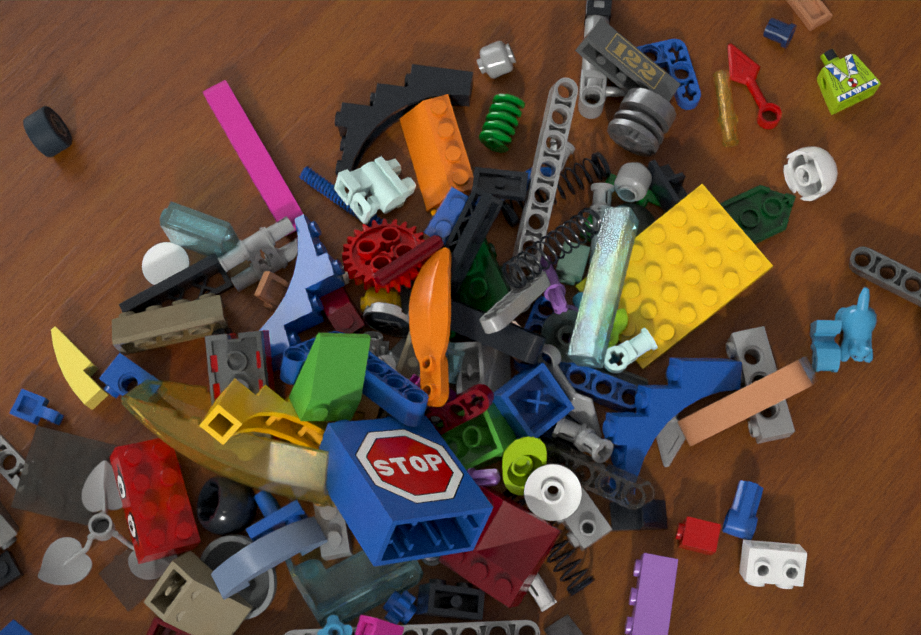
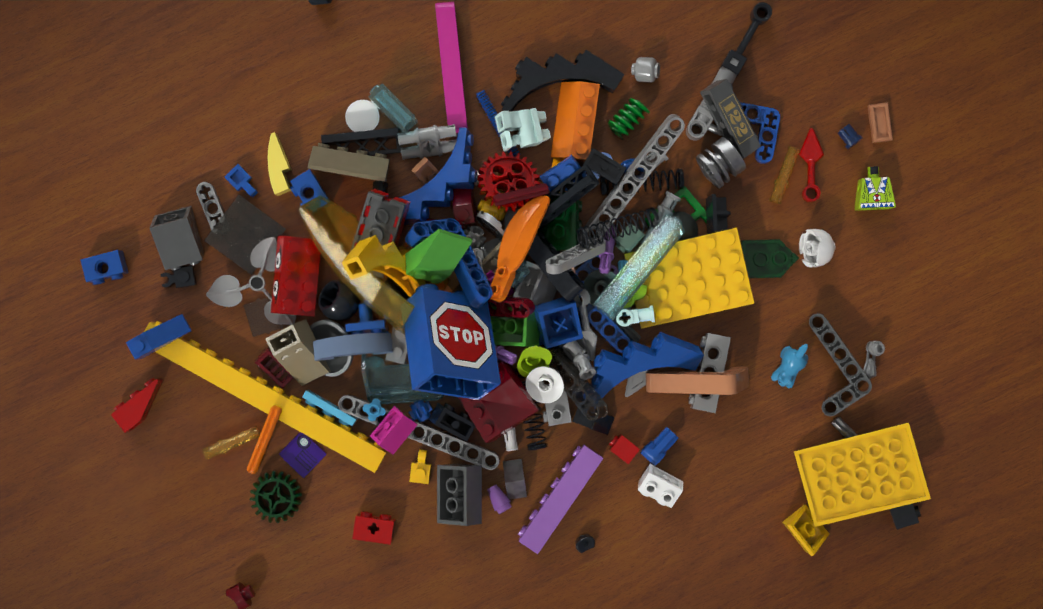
camera: 15 degrees right, 15 degrees up
(632, 182) = (694, 201): light grey head -> none
(826, 351) = (763, 368): dark azure leg -> none

